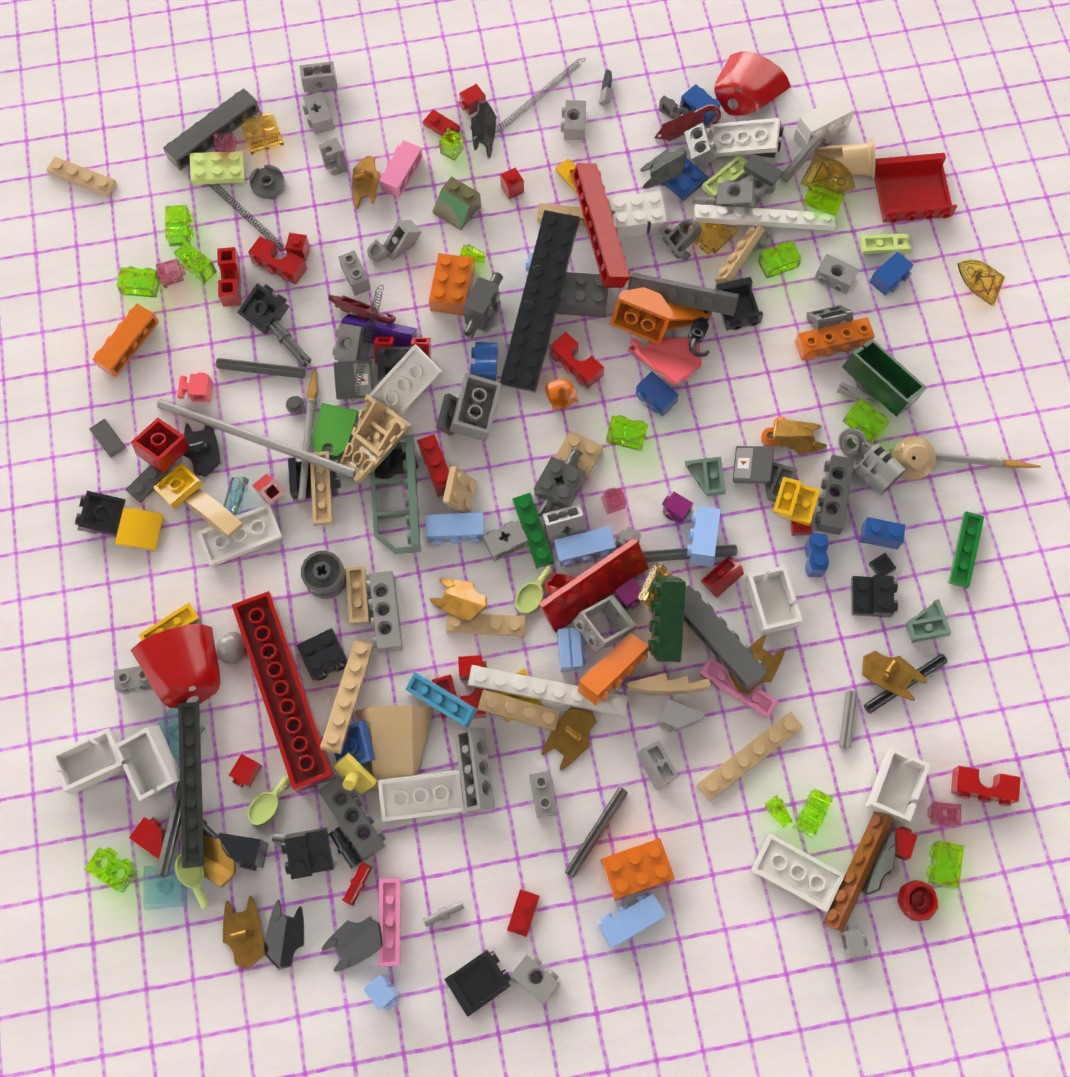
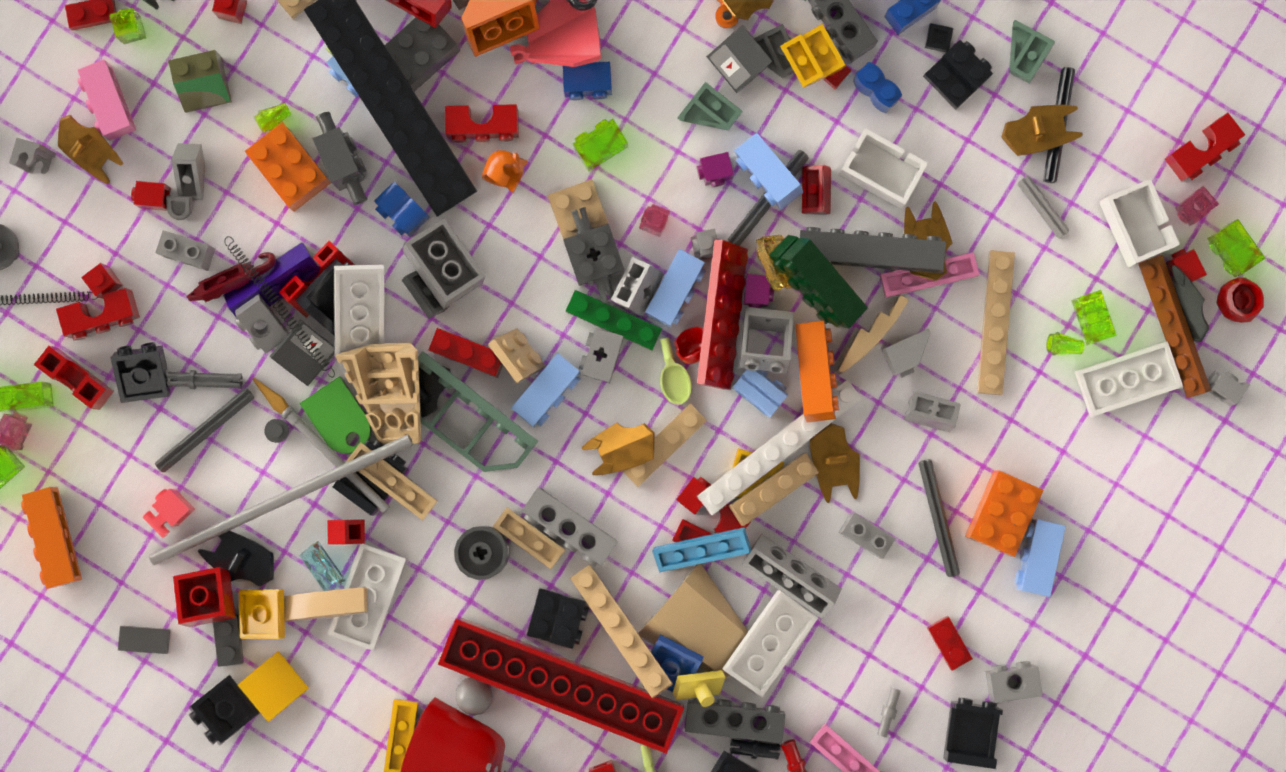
camera: 50 degrees left, 15 degrees up
(369, 231) = (150, 195): none -> red brick

